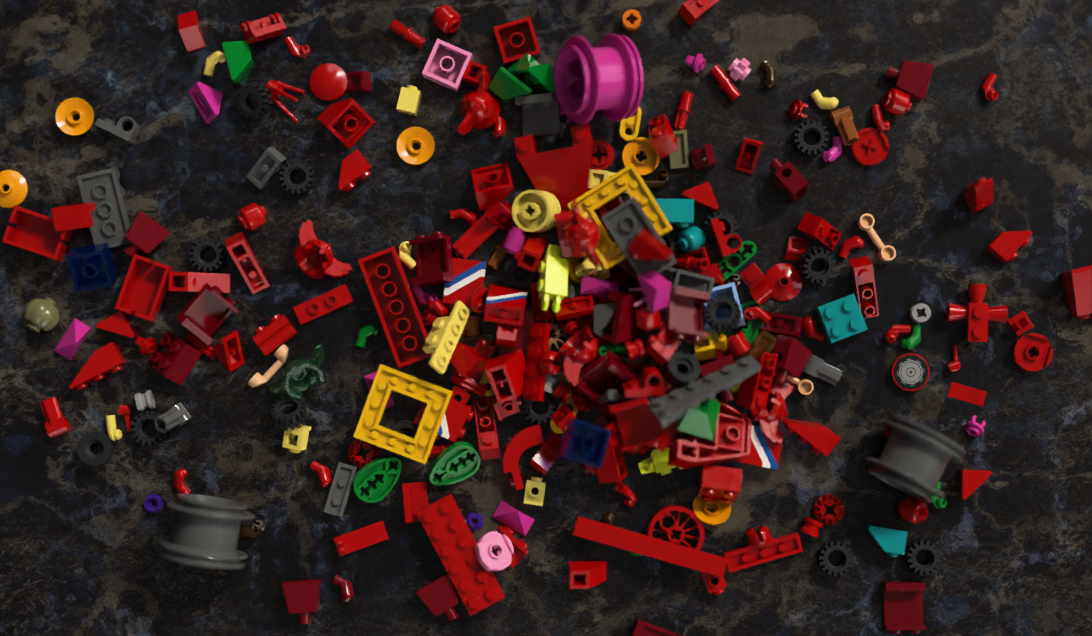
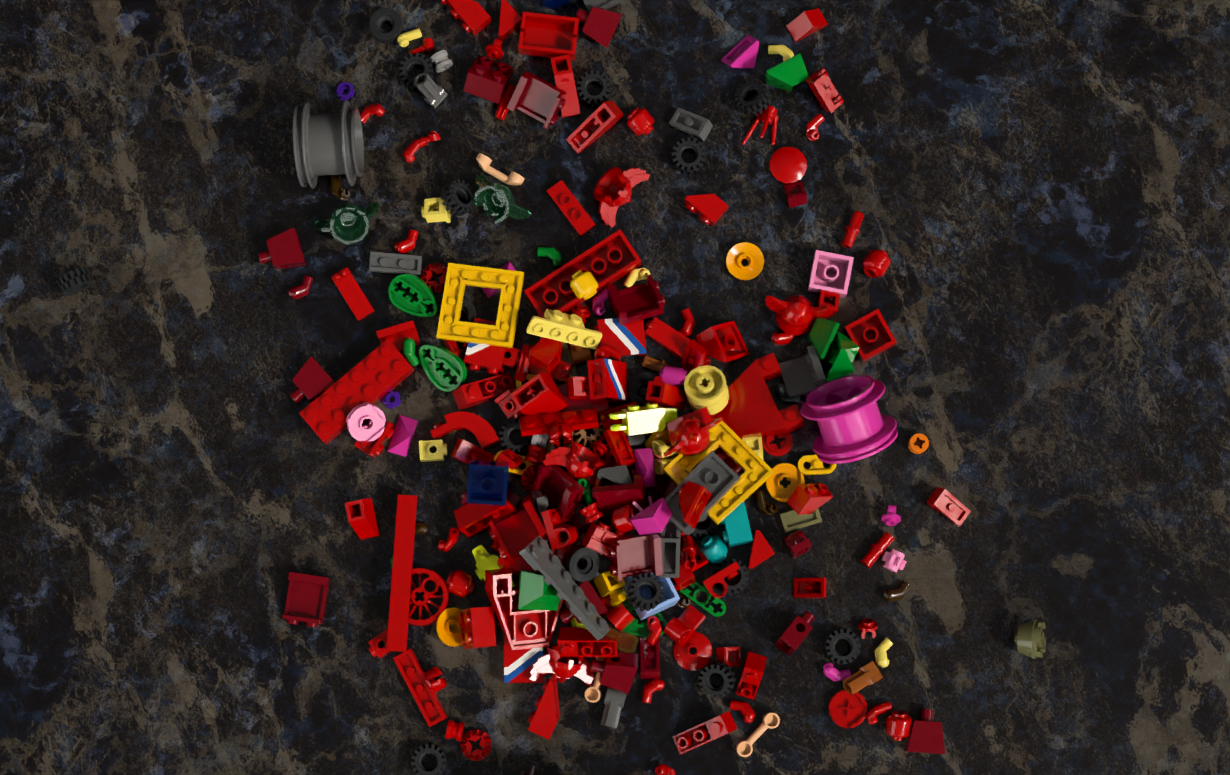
camera: 75 degrees right, 5 degrees down
(226, 447) = (416, 144): none -> red arm
(230, 351) = (505, 129): red slope -> none
(275, 334) = (531, 168): red brick -> none
(289, 527) = (349, 223): none -> clear green helmet
(346, 121) = (753, 190): red slope -> none
(406, 307) = (584, 285): none -> yellow head
(409, 100) = (788, 245): light yellow brick -> none
(431, 494) = (408, 350): none -> green arm
(439, 307) = (591, 318): red arm -> none
(671, 491) = (460, 583): none -> red head
(683, 110) = (840, 514): red axle -> none
(841, 318) = (668, 715): teal brick -> none

